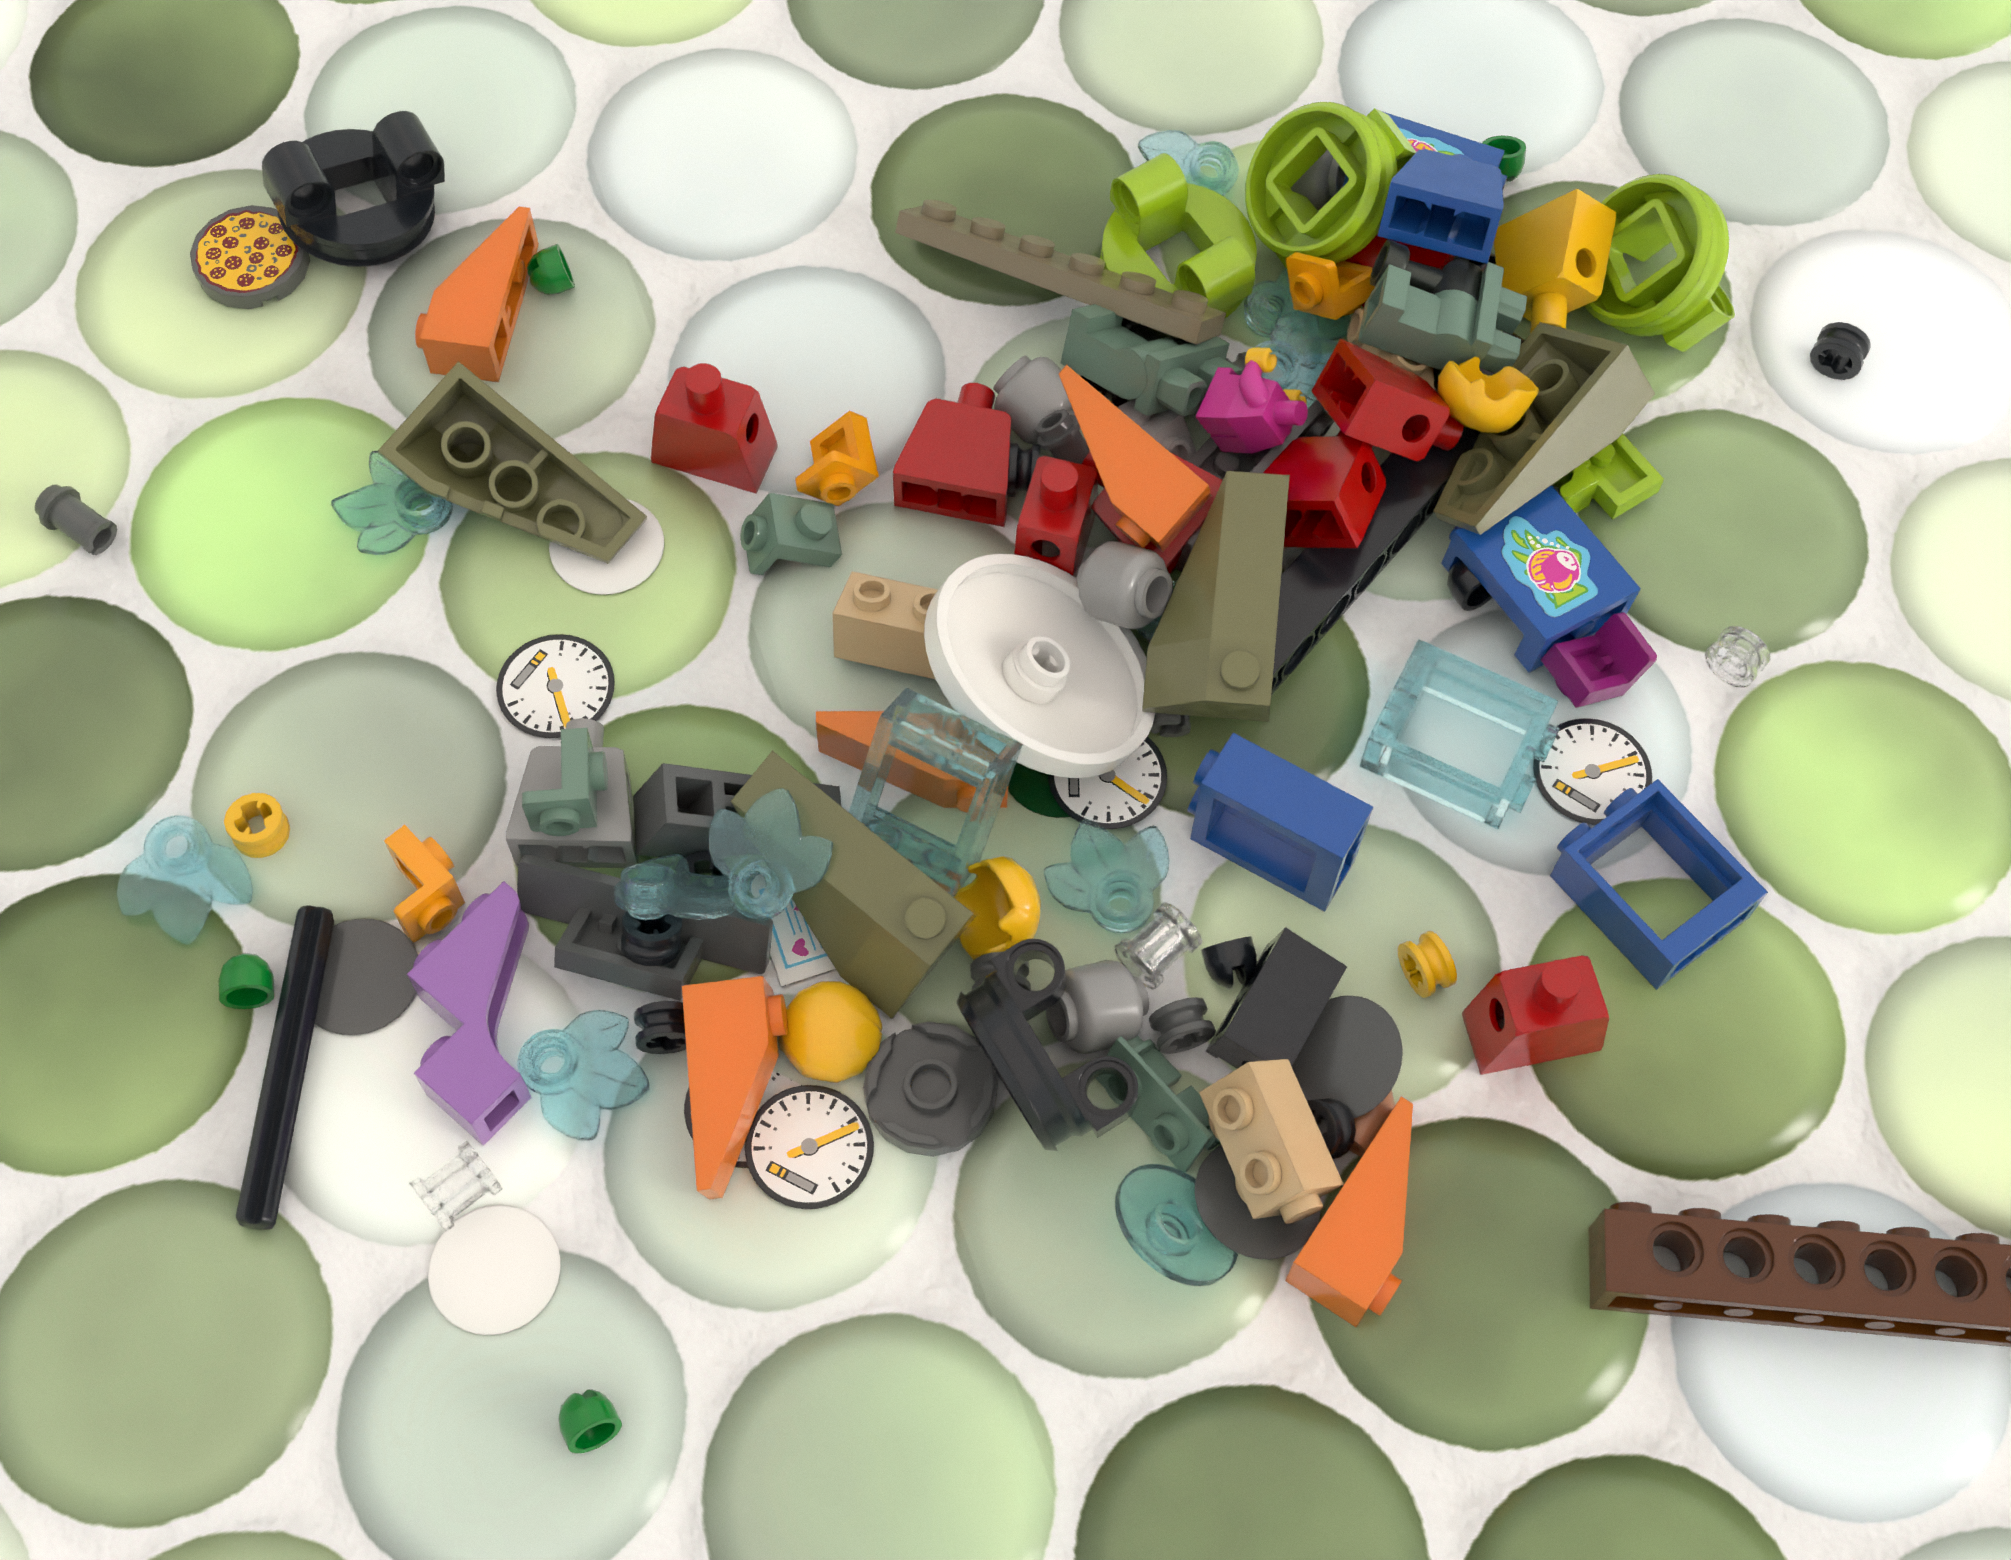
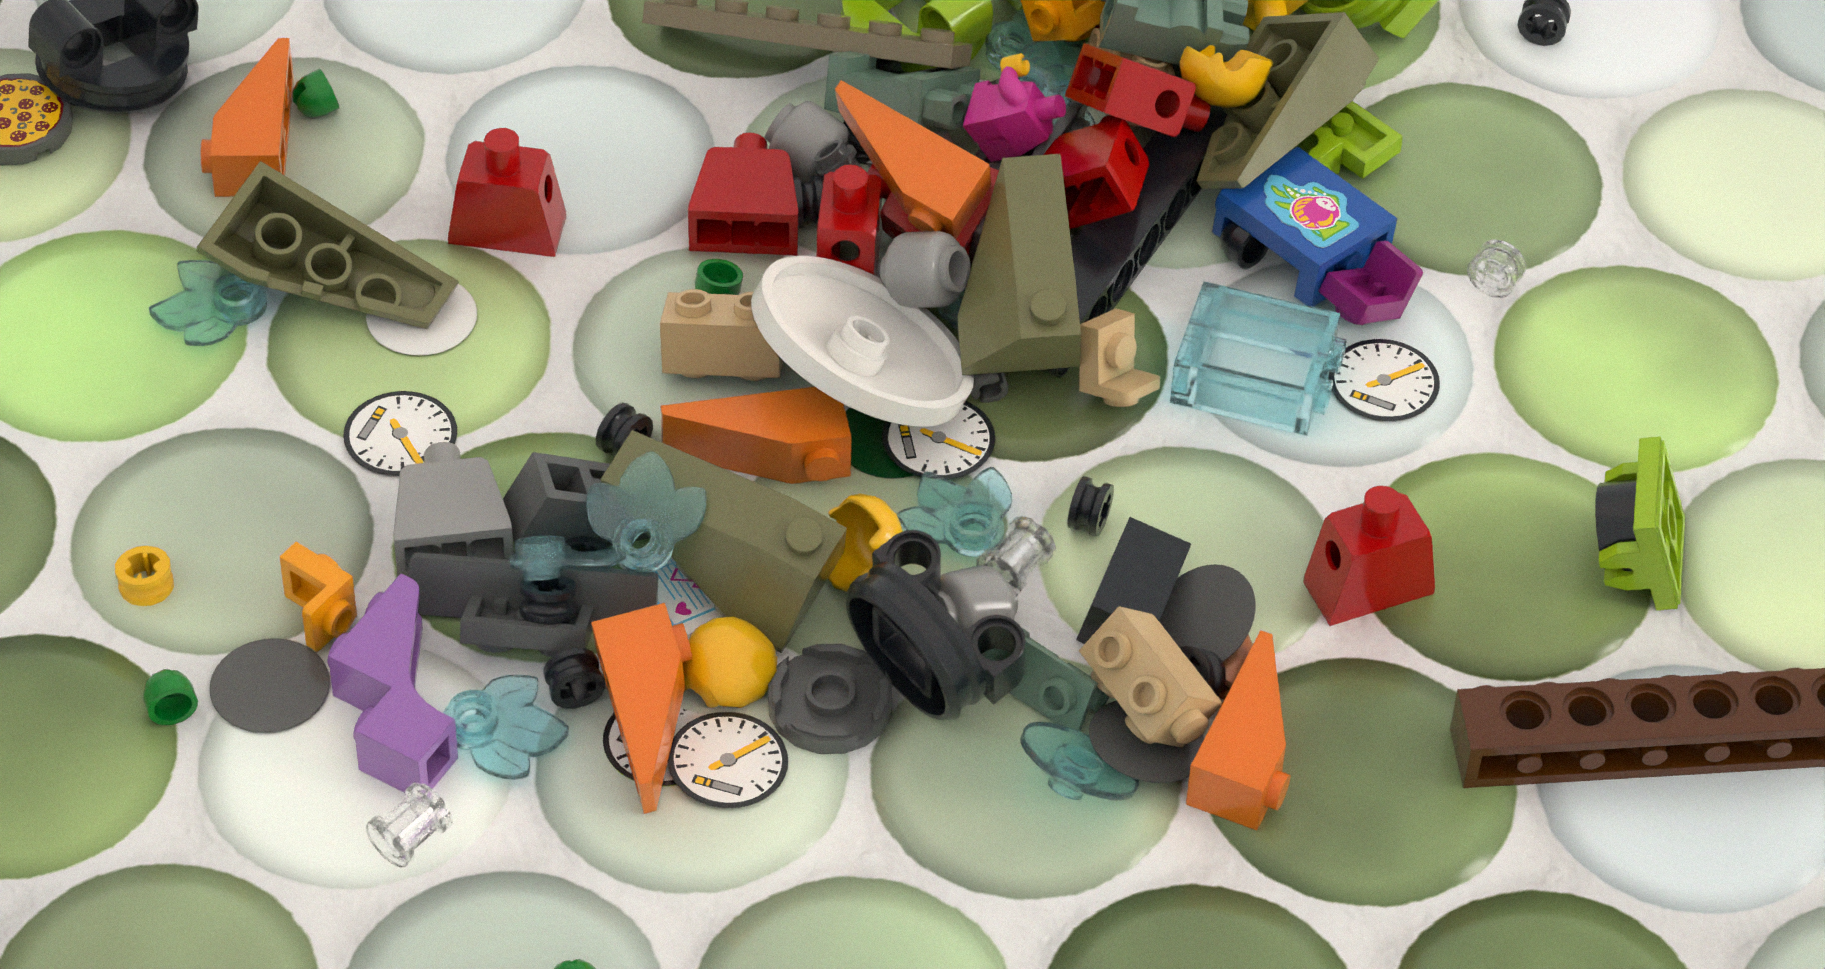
camera: 10 degrees left, 15 degrees down
(185, 886) = (86, 630): clear light blue plate -> none
(285, 1069) = (223, 759): black axle -> none
(494, 1270) = (456, 893): white sticker -> none
(575, 804) = (452, 496): sand green bracket -> none
(778, 727) = (618, 425): none -> black bush
(790, 531) = (598, 274): sand green bracket -> none
(841, 461) = (633, 213): light orange bracket -> none
(919, 553) = (719, 277): none -> green hinge
(976, 757) = (801, 395): clear light blue window -> none
(1182, 1025) = (1051, 614): dark grey bush -> none
(1229, 956) = (1083, 560): black hinge -> none
(1249, 893) = (1090, 506): none -> black bush
(1277, 820) = (1115, 407): blue window -> none
(1301, 716) = (1108, 360): none -> tan bracket
(1427, 964) = (1263, 539): yellow bush -> none
(1691, 846) = (1472, 507): blue window -> none
(1842, 1021) = (1642, 526): none -> lime piece

